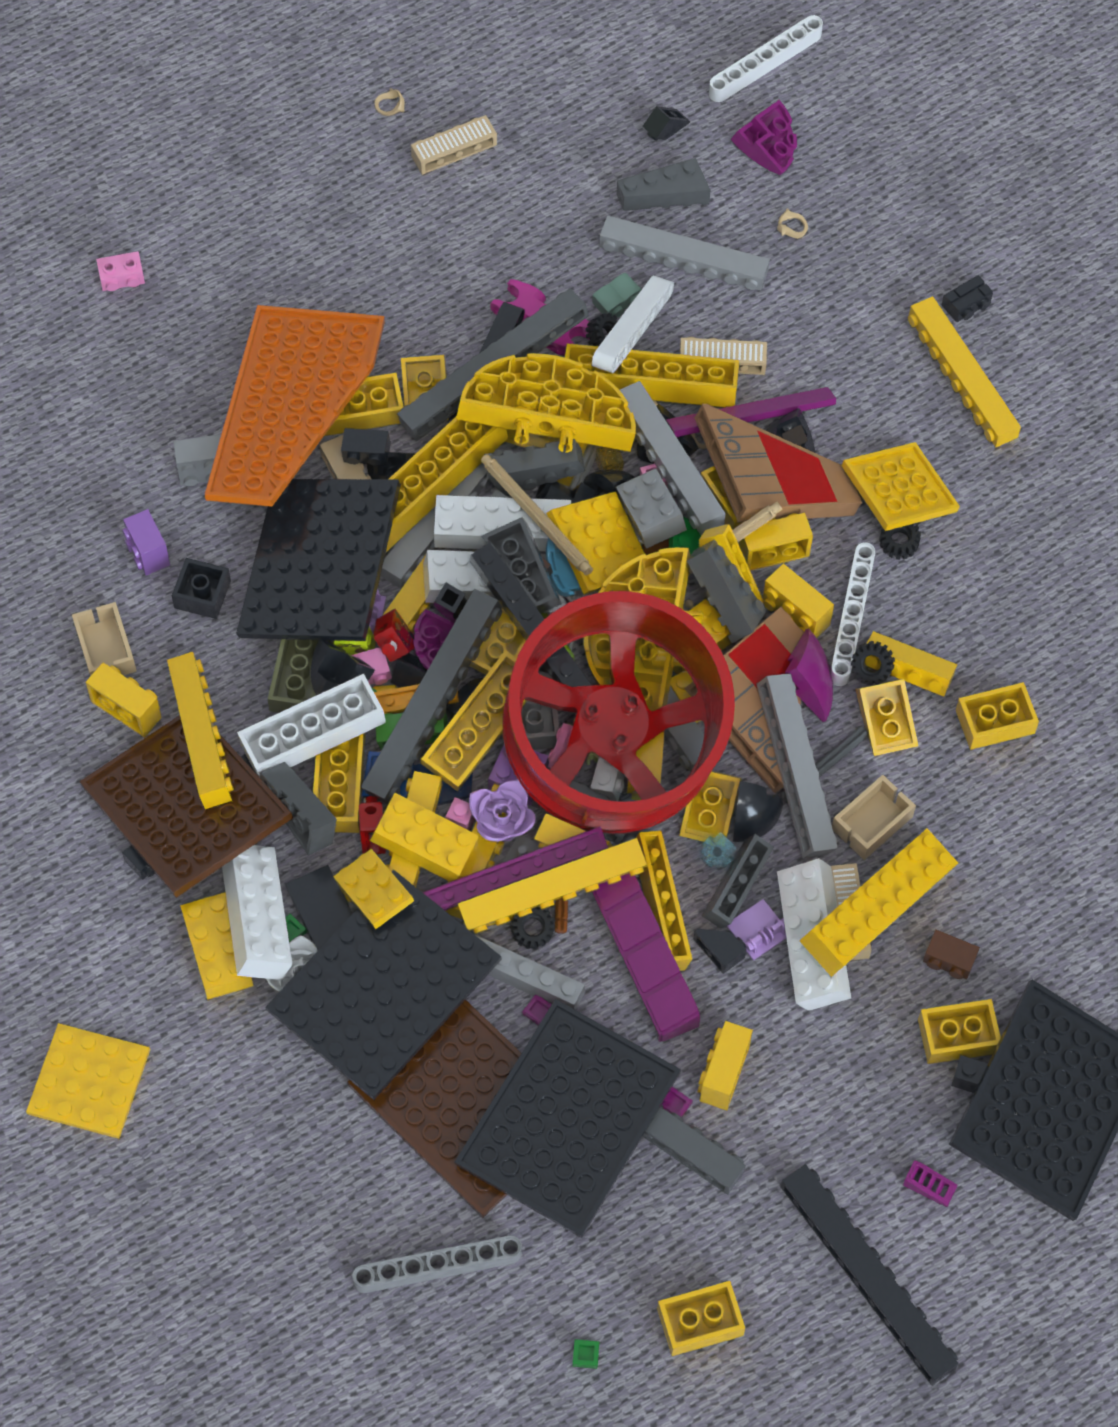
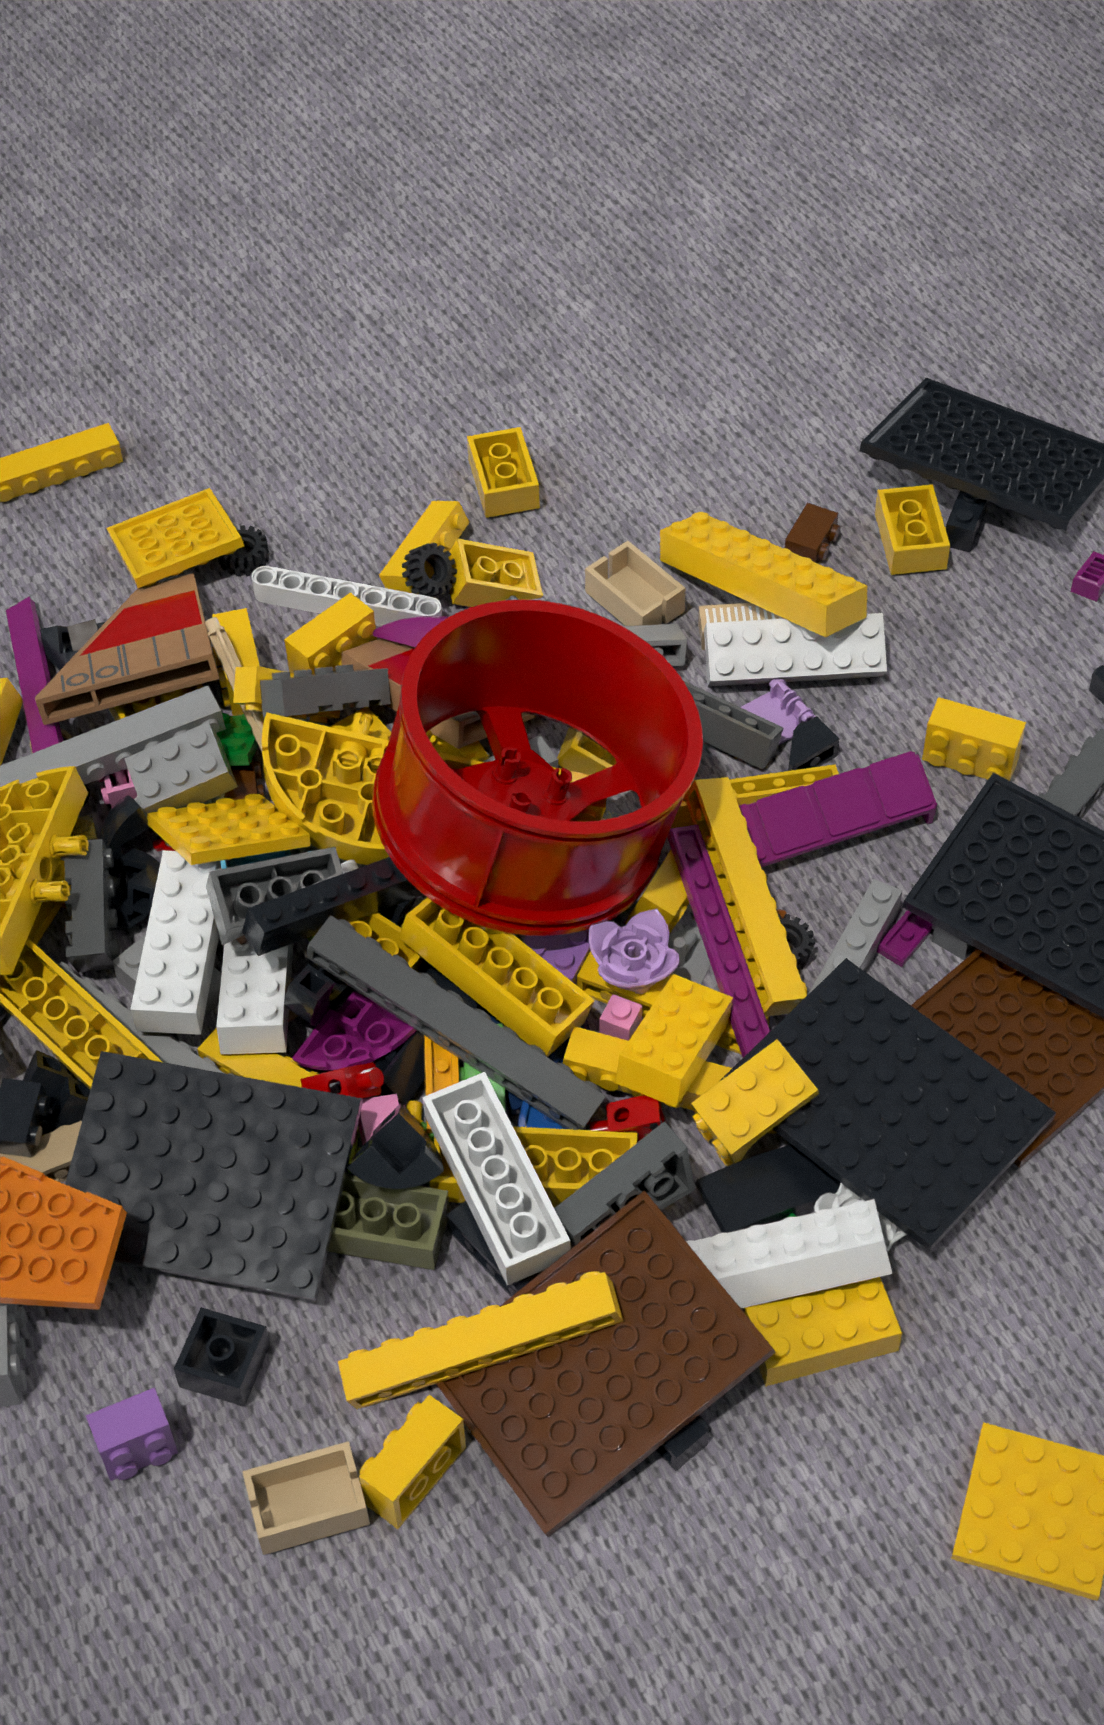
camera: 85 degrees left, 10 degrees down
(537, 514) = (187, 879): tan piece -> none

